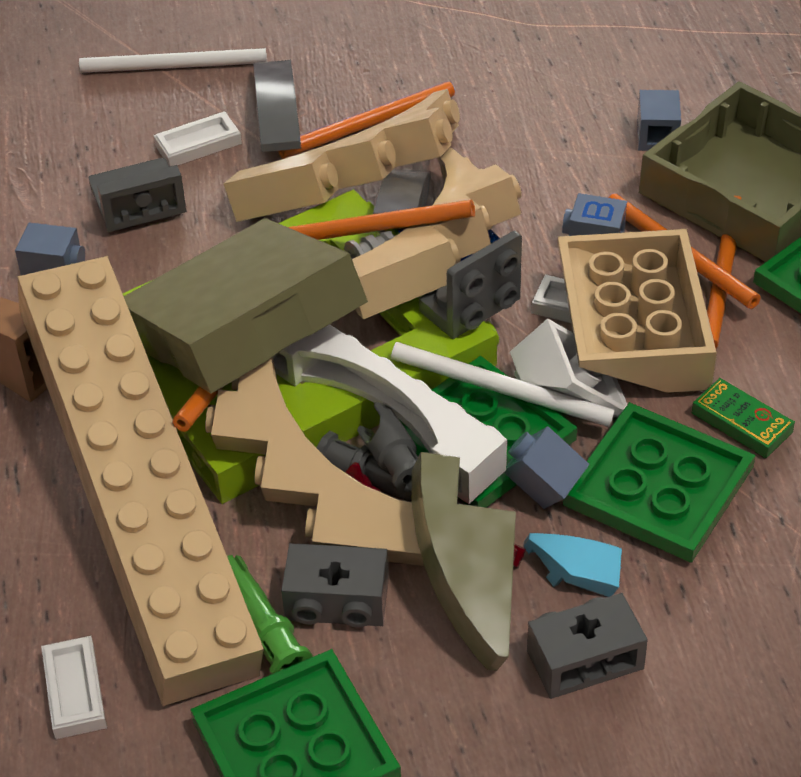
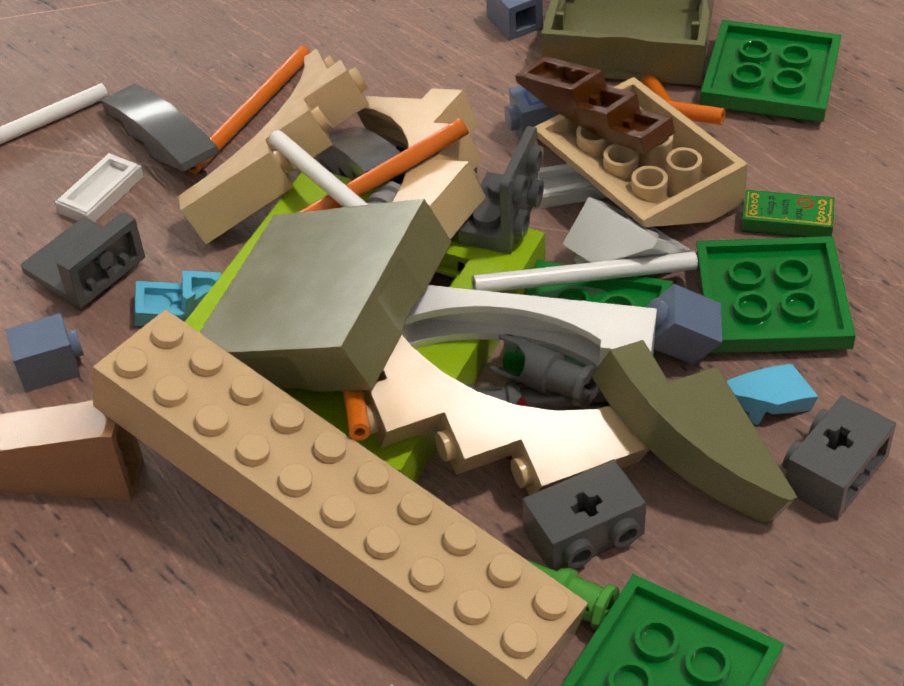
camera: 30 degrees left, 0 degrees up
(168, 251) = (177, 298): none -> medium azure slope
(335, 199) = (314, 170): none -> white piece
(621, 239) = (585, 100): none -> reddish brown slope

